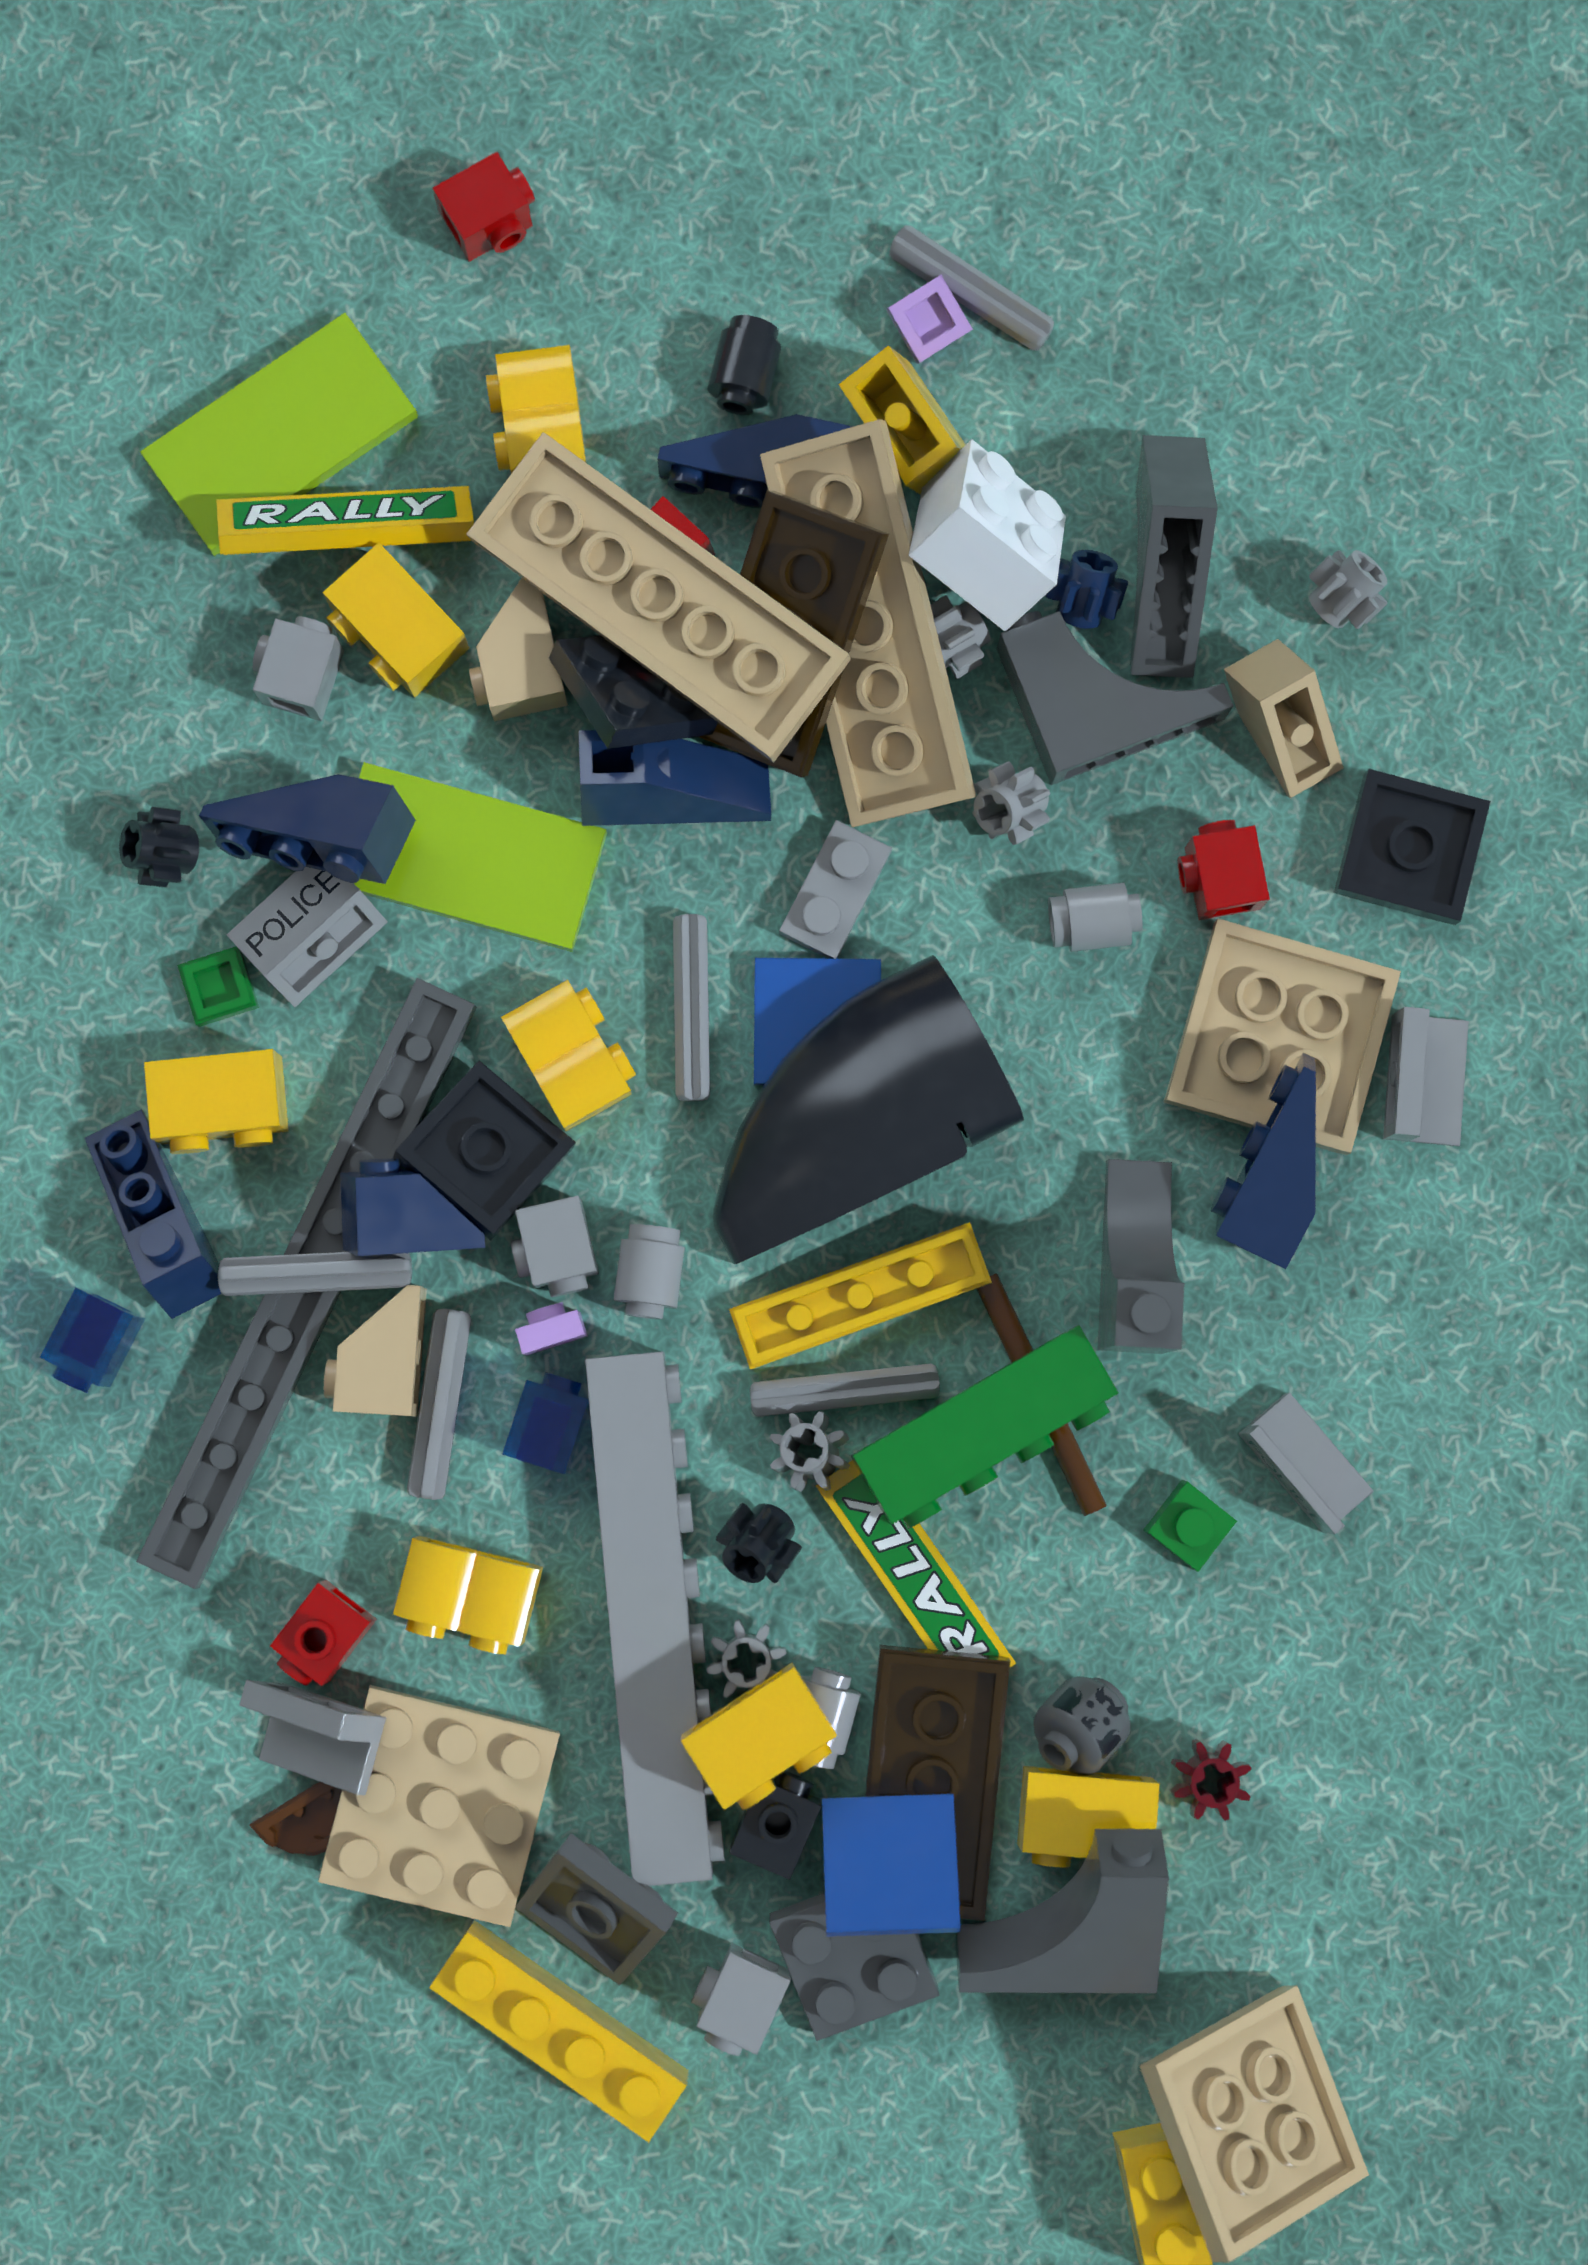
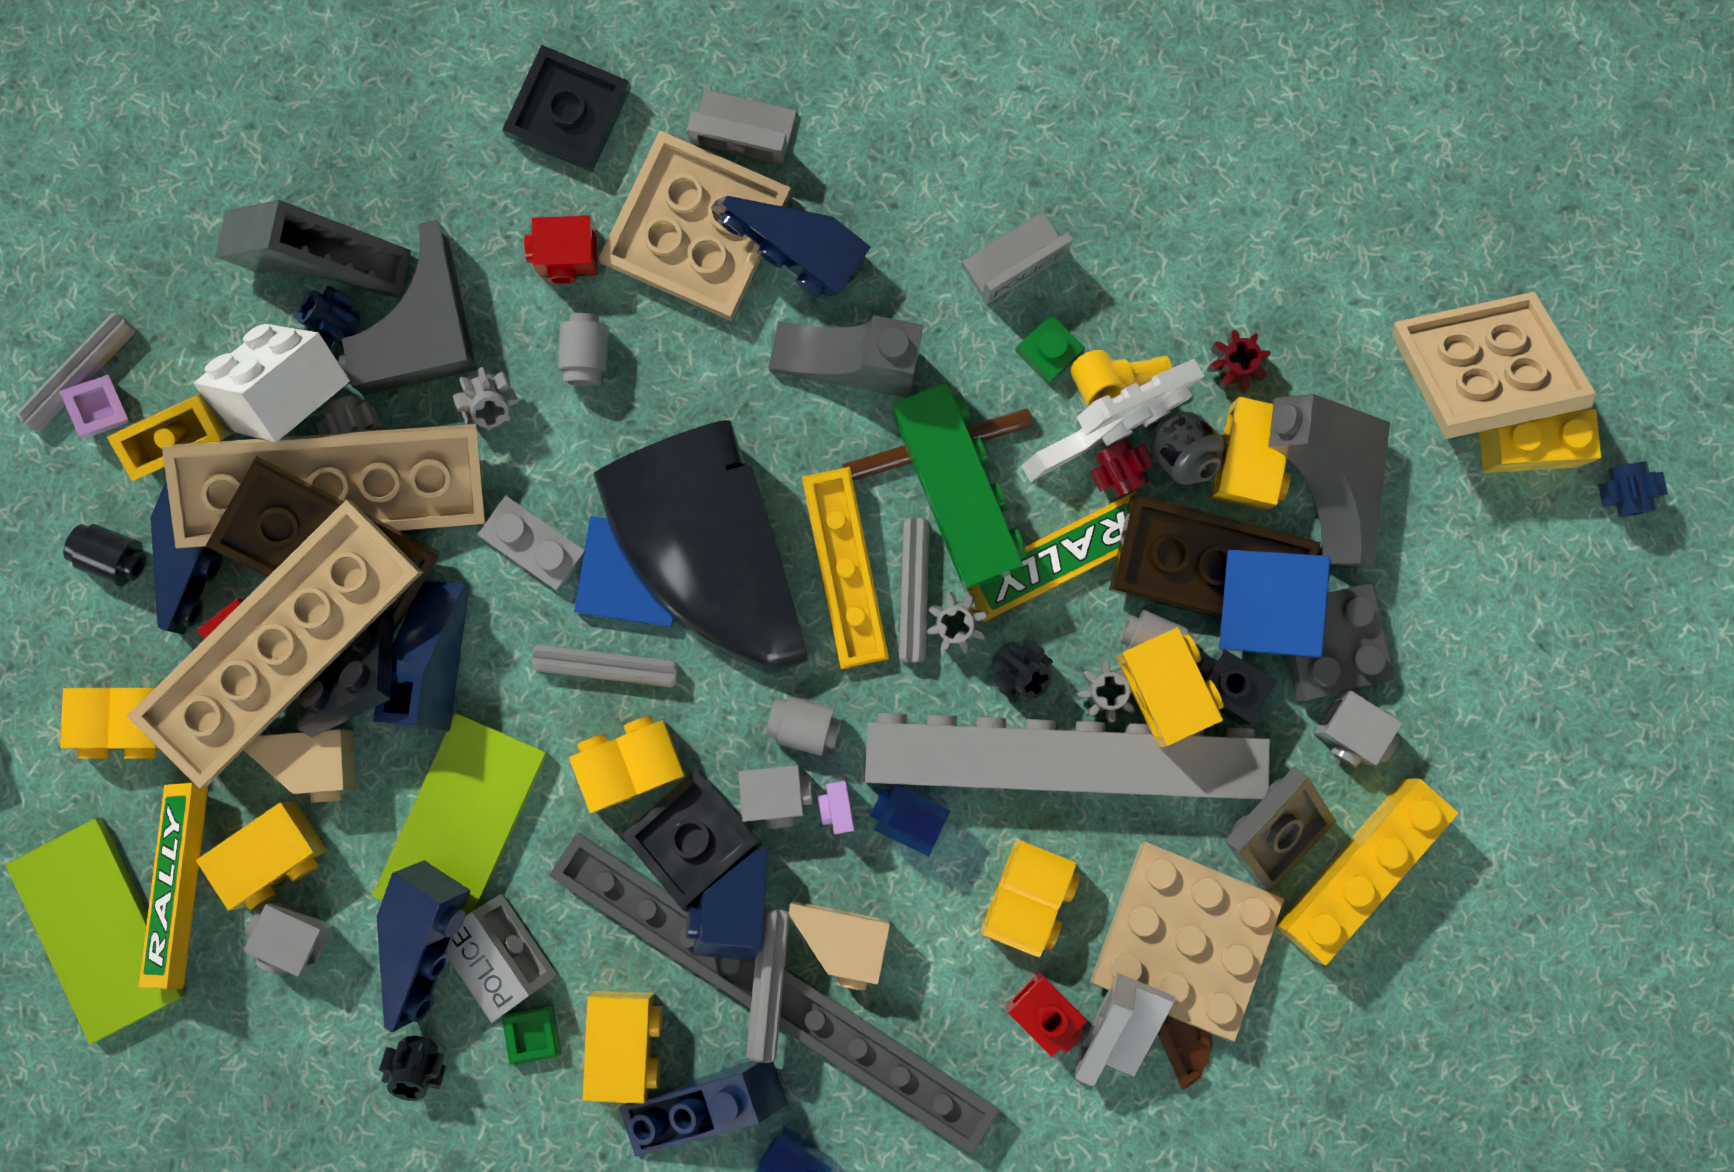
camera: 75 degrees left, 0 degrees up
(439, 1404) = (882, 901): light grey axle -> none
(1043, 1640) = (1122, 467): none -> dark red gear
(1105, 1626) = (1112, 419): none -> white wing
(1154, 1608) = (1101, 376): none -> yellow pin
(1285, 715) = (451, 184): tan slope -> none
(1348, 589) = (361, 123): light grey gear -> none

